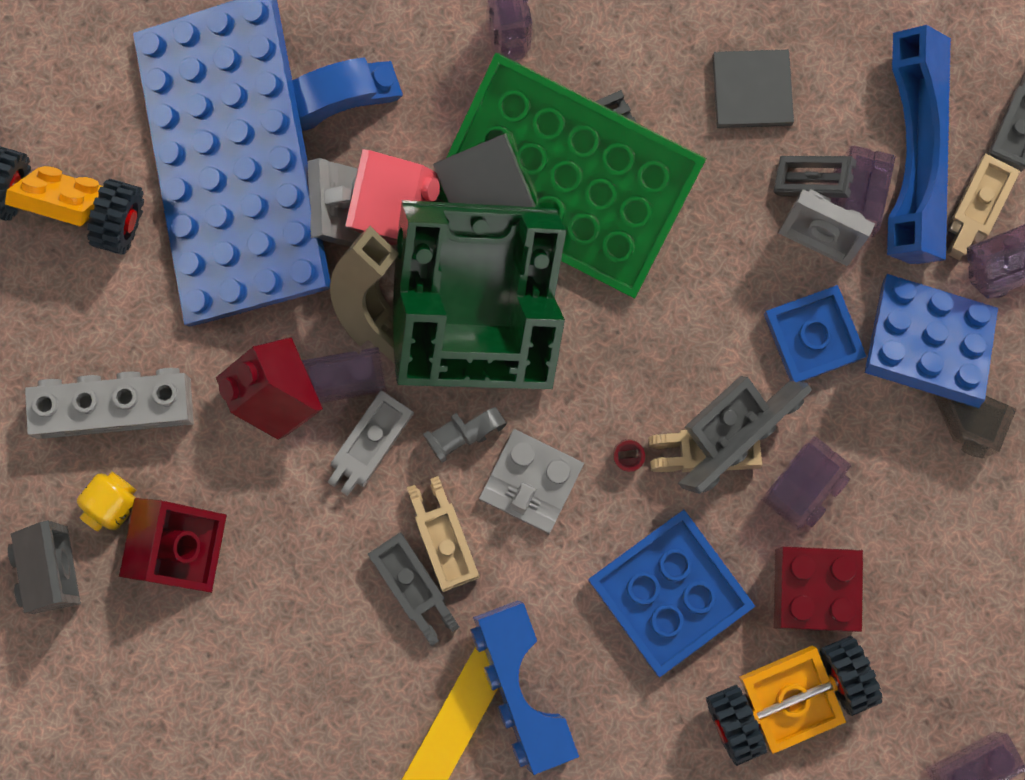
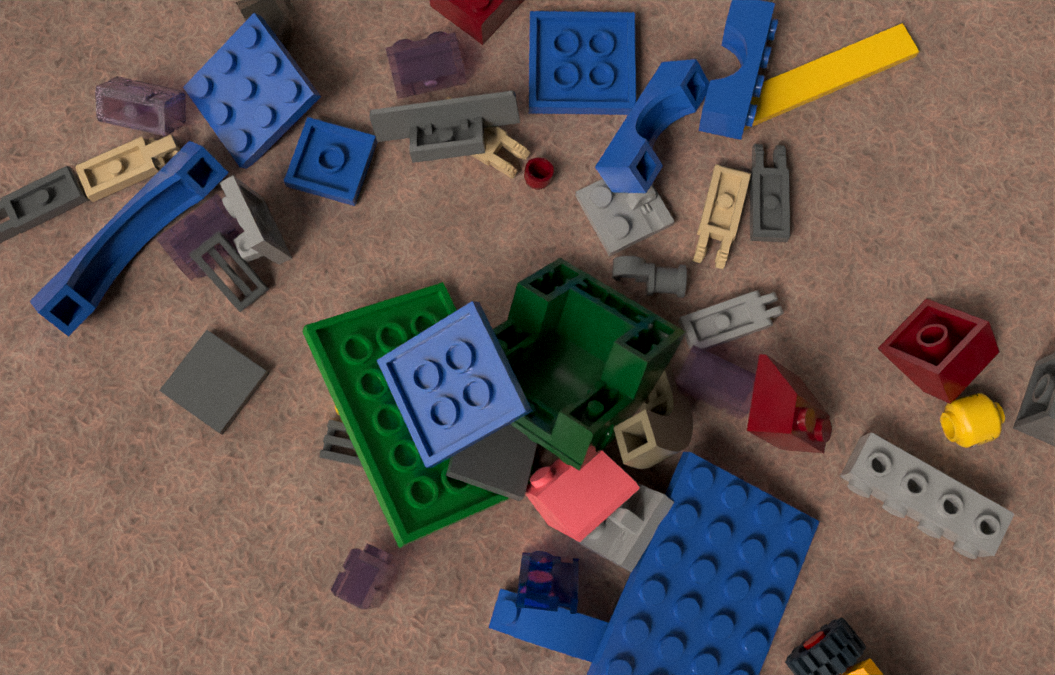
camera: 140 degrees left, 5 degrees down
(368, 116) = (547, 582): none -> clear blue plate
(549, 194) = (453, 385): none -> plate
(566, 610) = (672, 93): none -> blue arch

